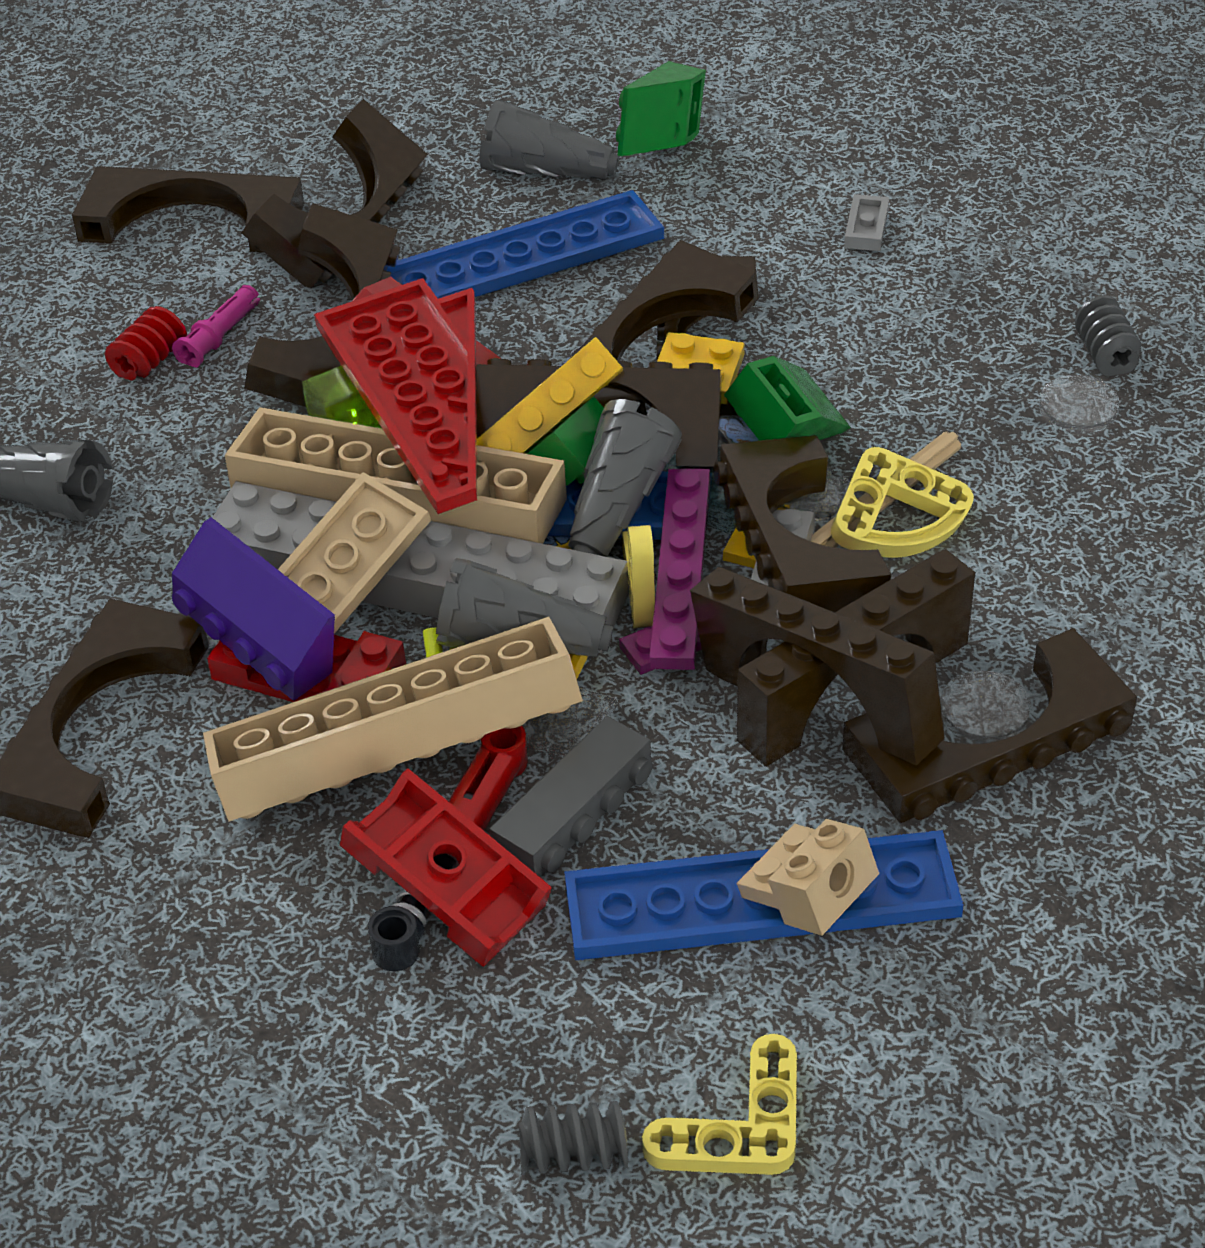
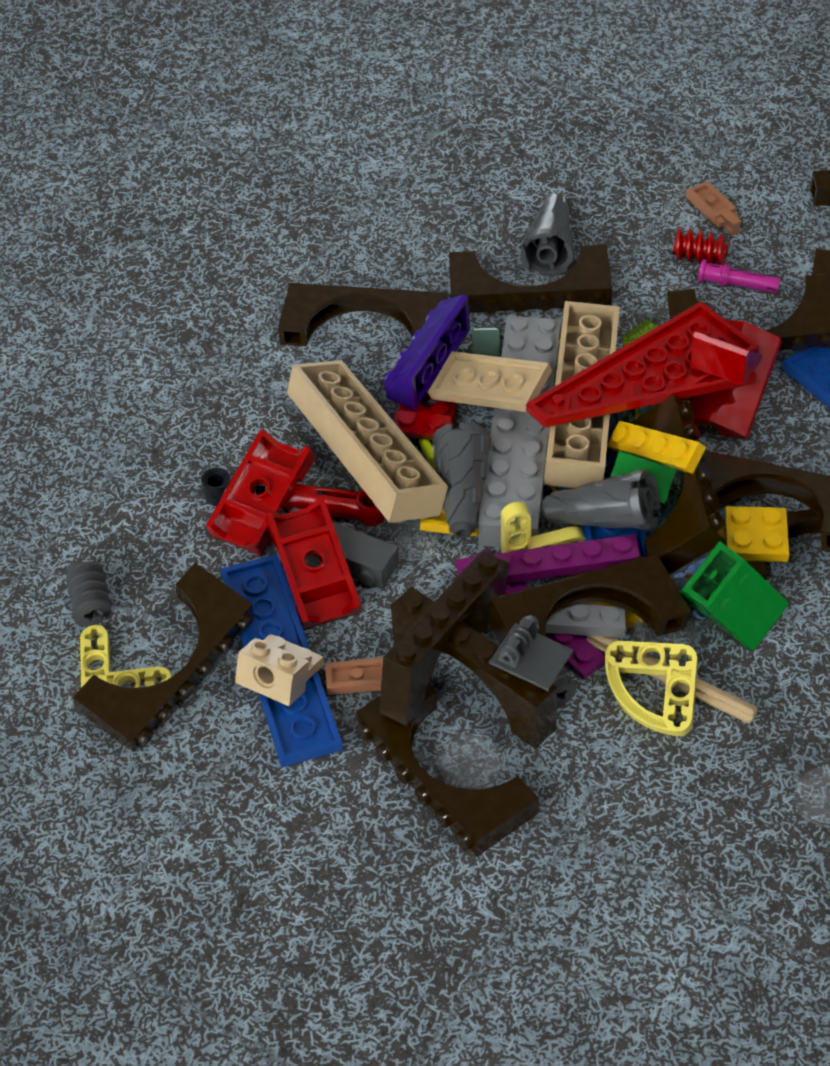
camera: 80 degrees right, 5 degrees up
(69, 321) = (715, 207): none -> nougat hinge
(159, 464) = (585, 283): none -> dark brown arch
(446, 299) = (723, 359): none -> red slope
(571, 805) = (321, 591): none -> red piece
(702, 939) = (135, 712): none -> dark brown arch
(818, 794) = (354, 676): none -> nougat plate
(897, 554) = (531, 654): none -> dark grey hinge

